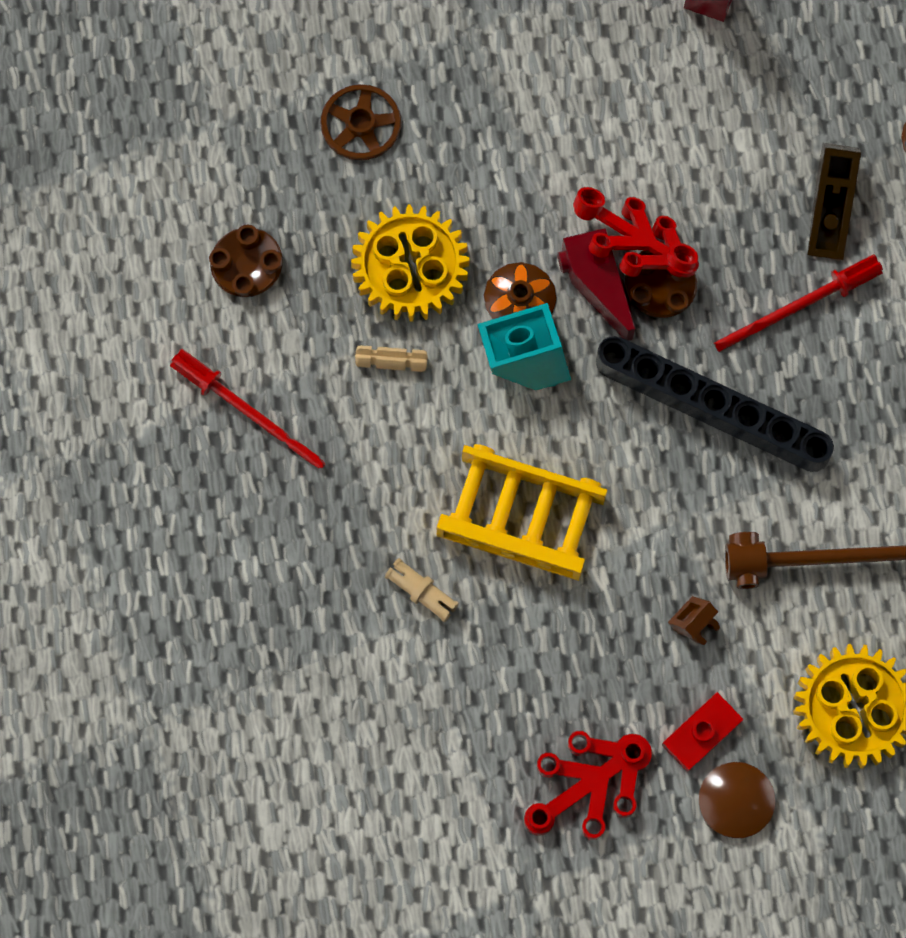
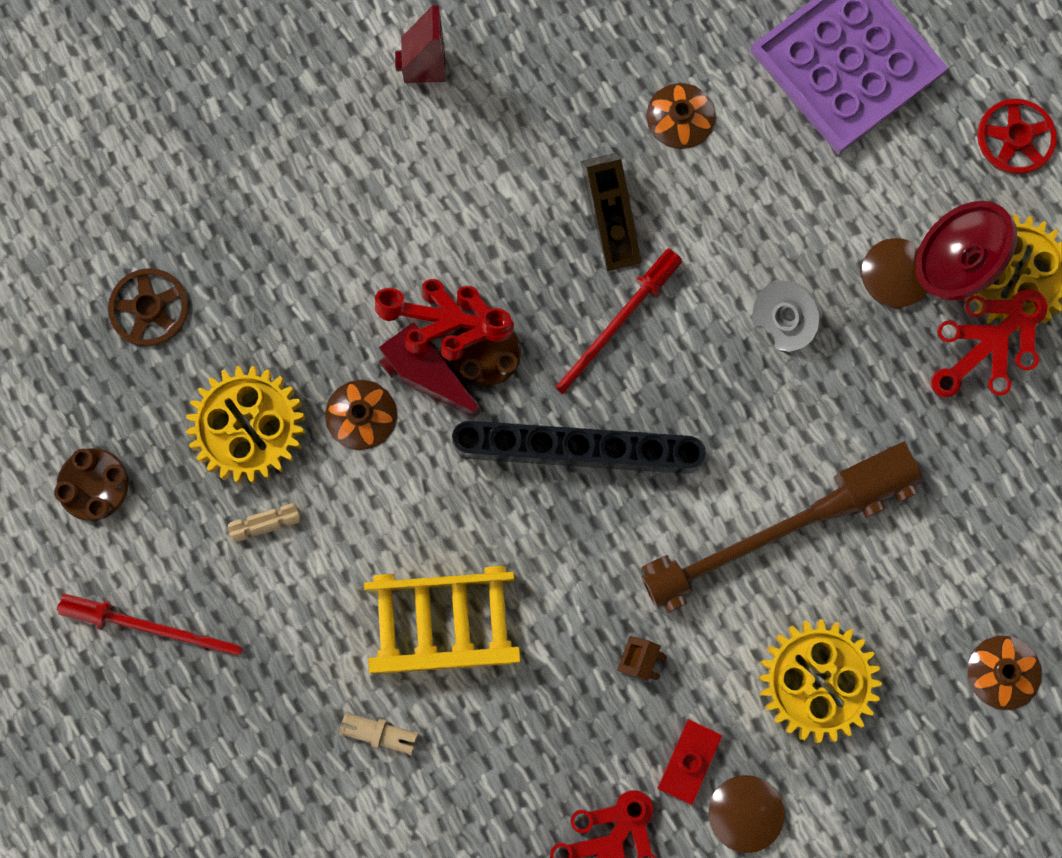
camera: 20 degrees left, 5 degrees up
(525, 348) = (384, 465): teal slope -> none

